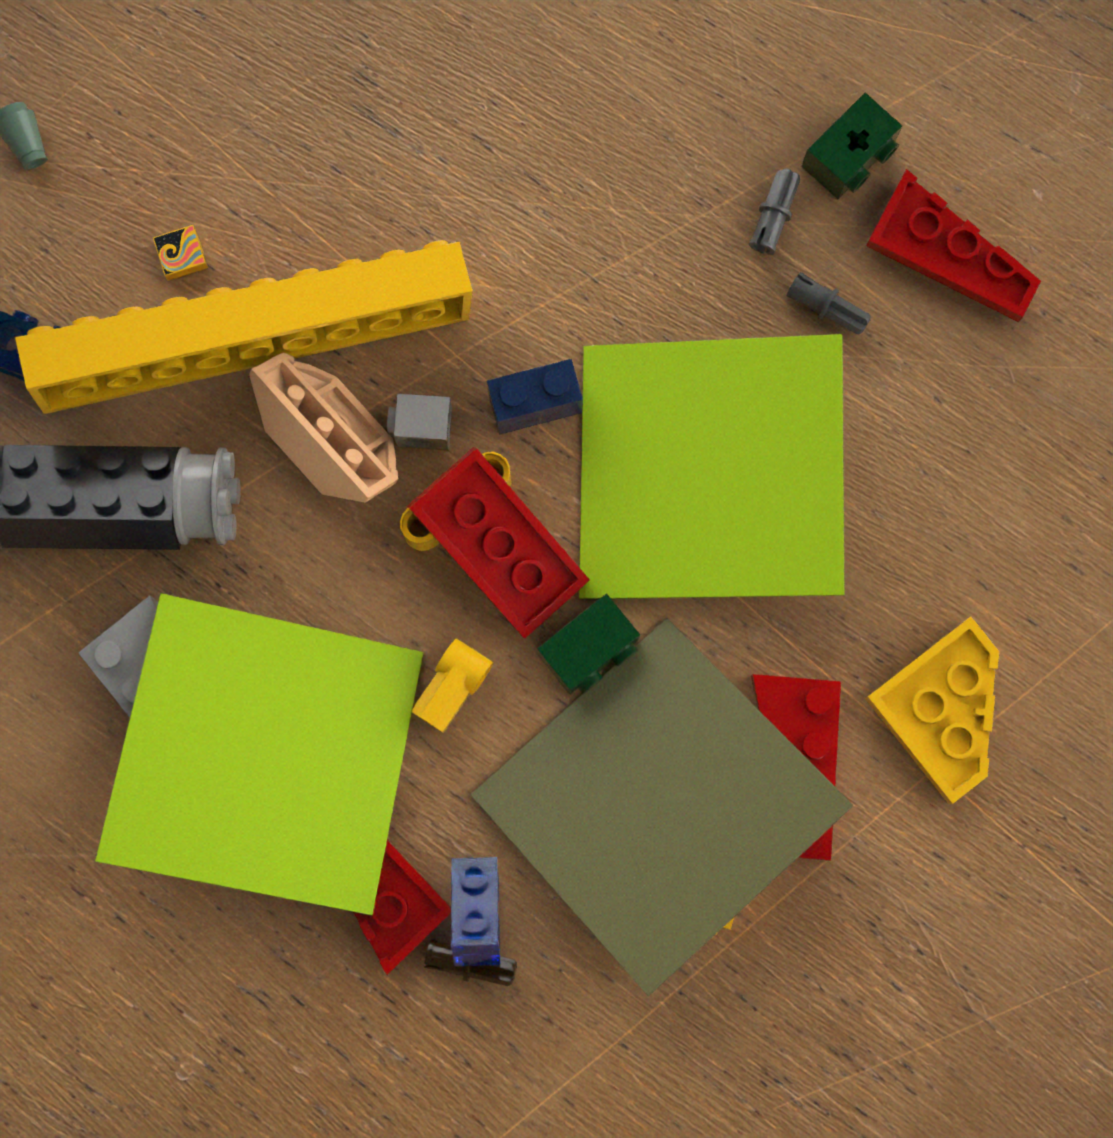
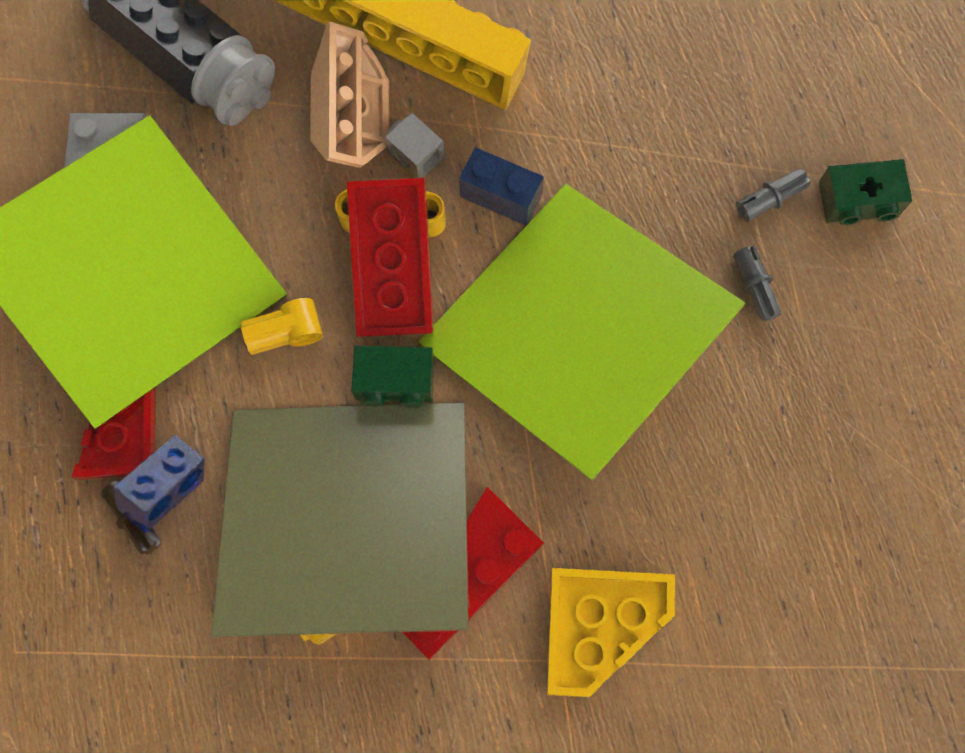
camera: 45 degrees right, 5 degrees down
(940, 245) = (874, 306): red wing -> none

